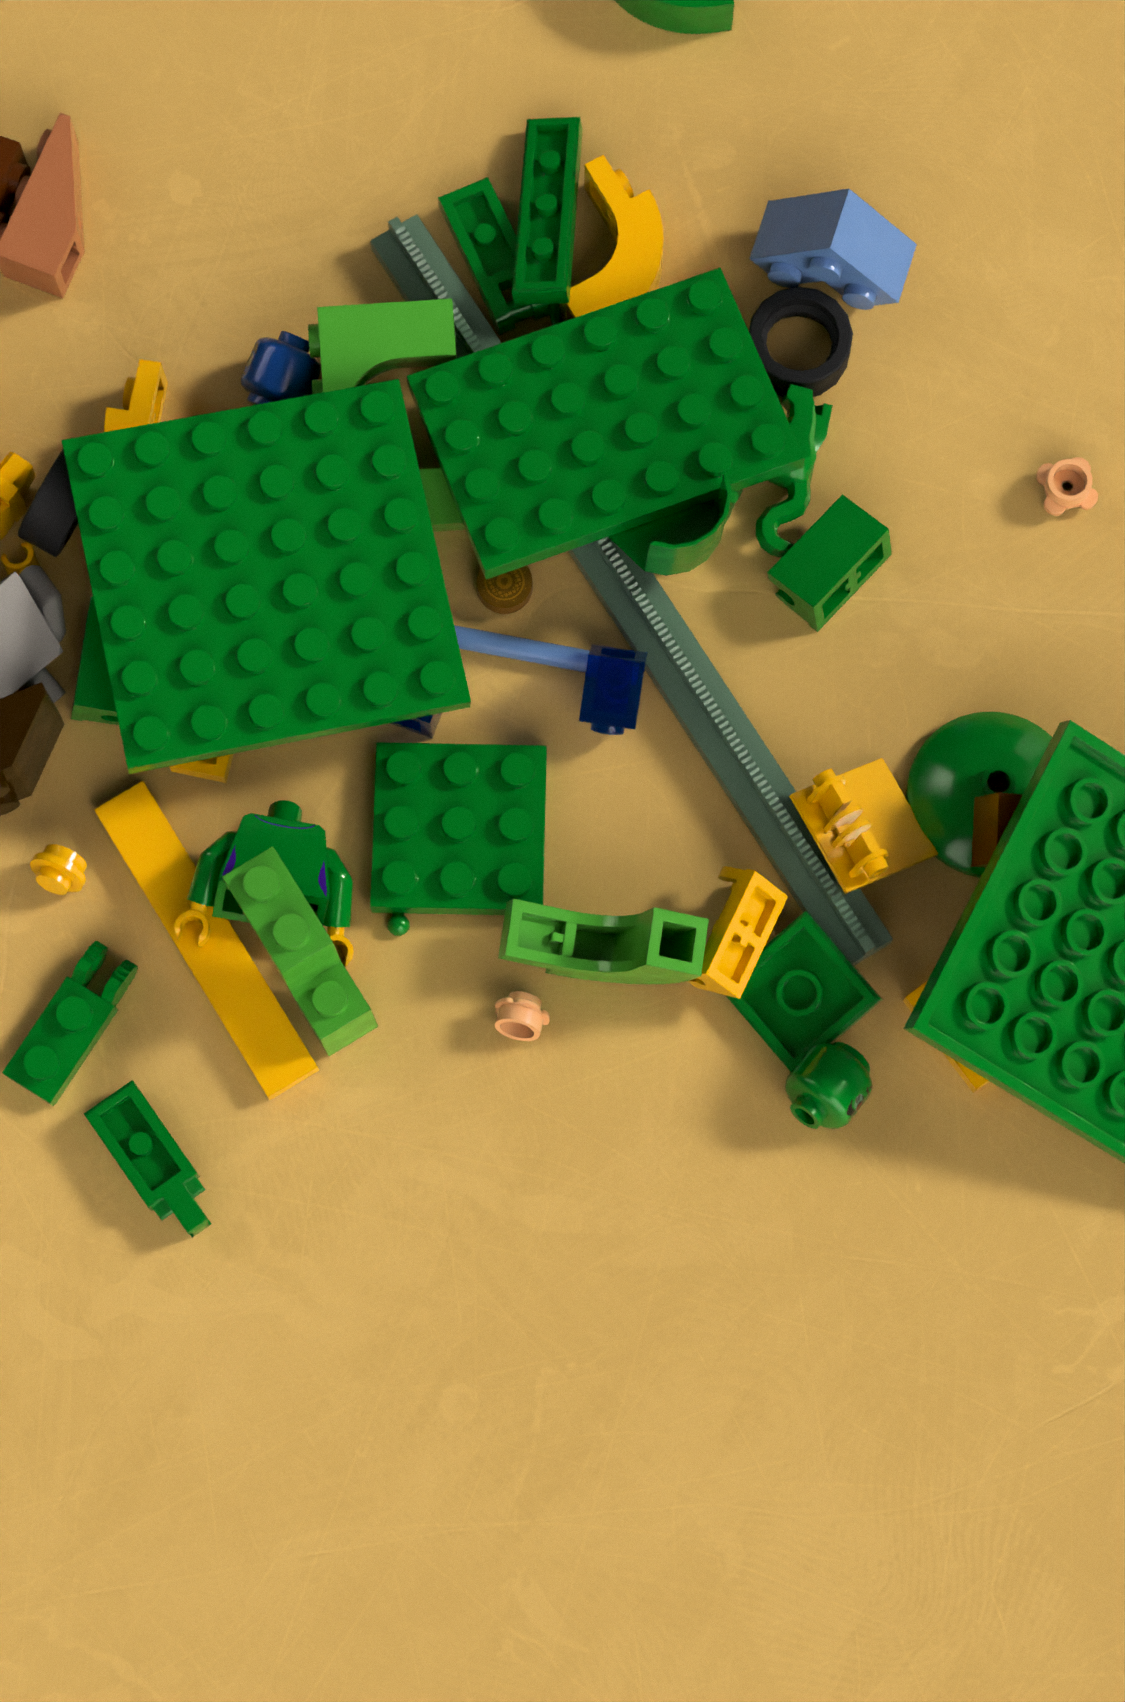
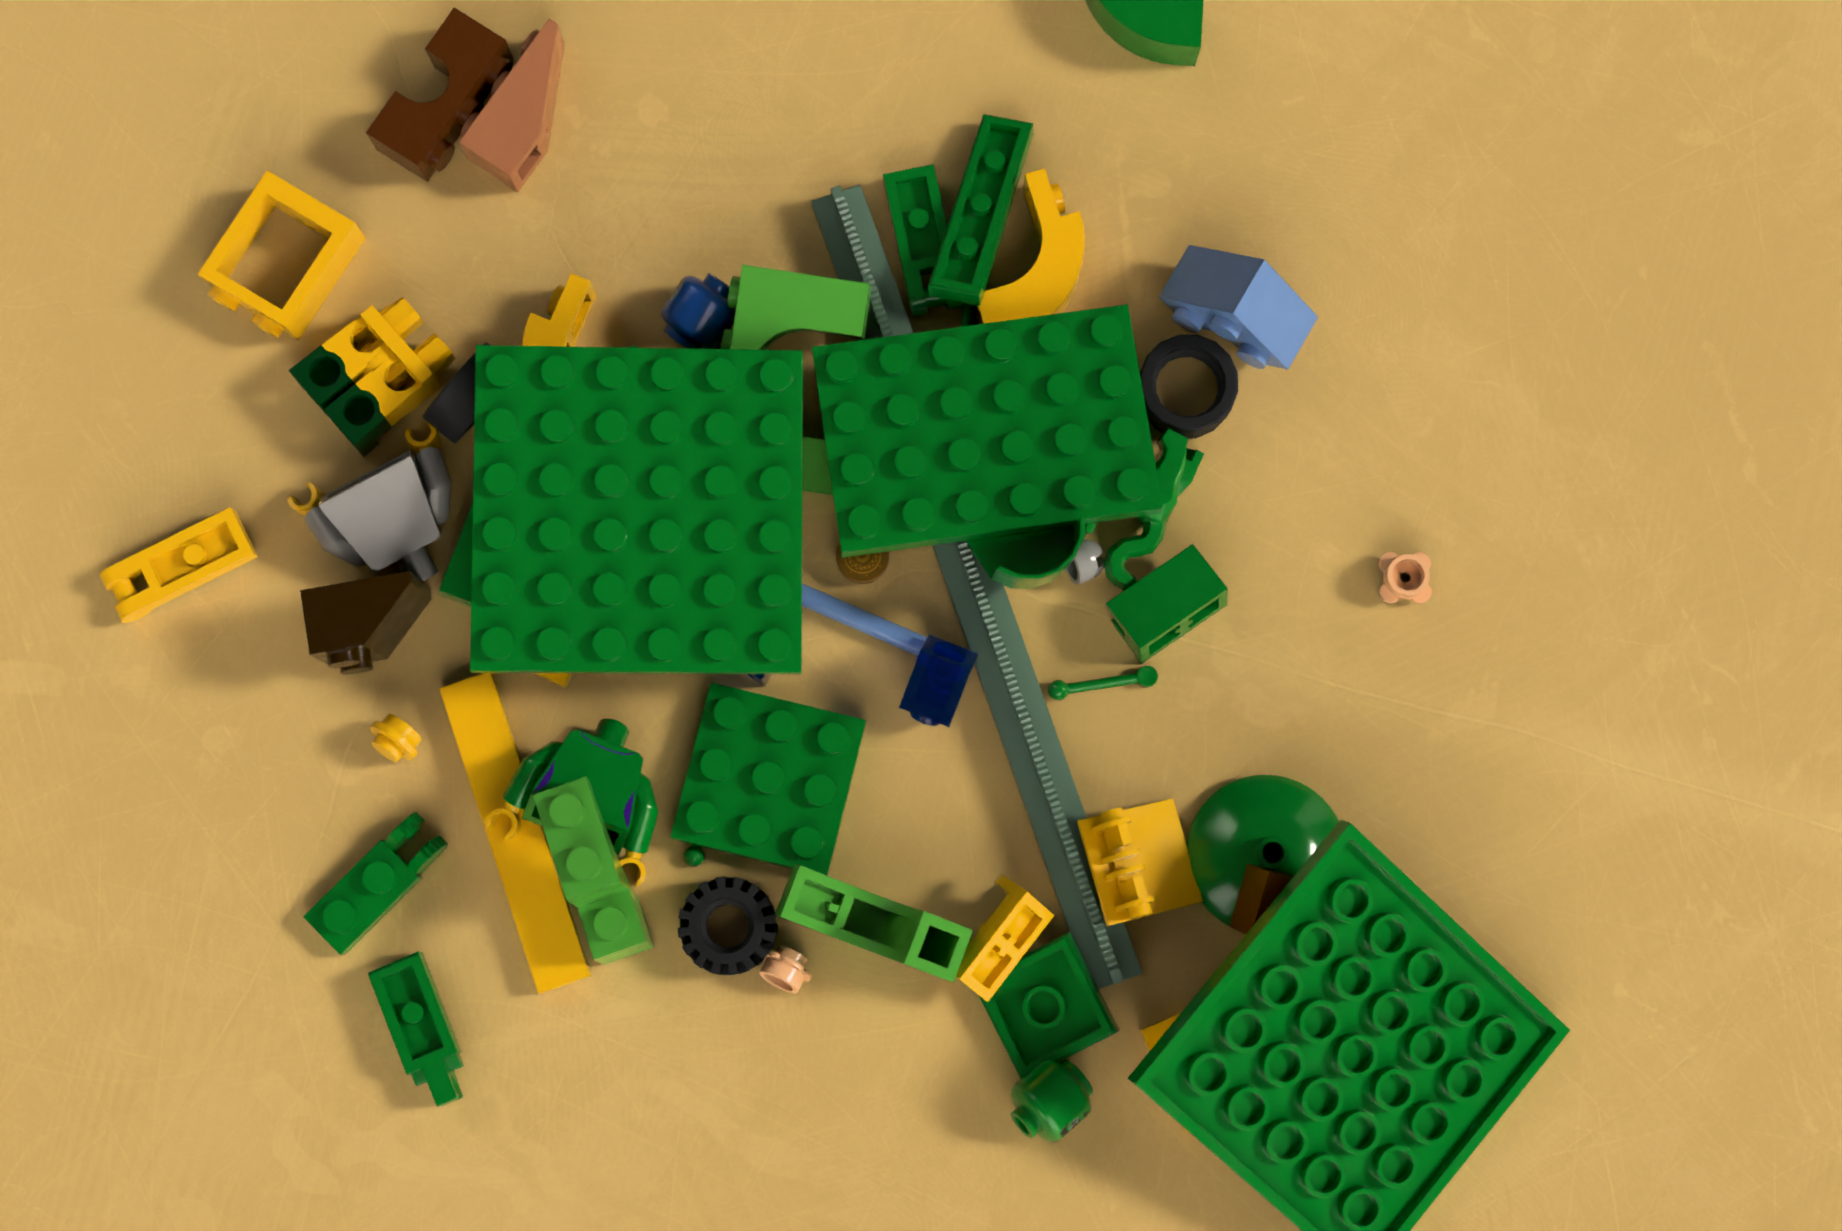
camera: 10 degrees right, 5 degrees up
(444, 950) = (695, 918): none -> black tyre
(735, 540) = (1086, 563): none -> light grey hinge
(824, 644) = (1145, 677): none -> green hinge

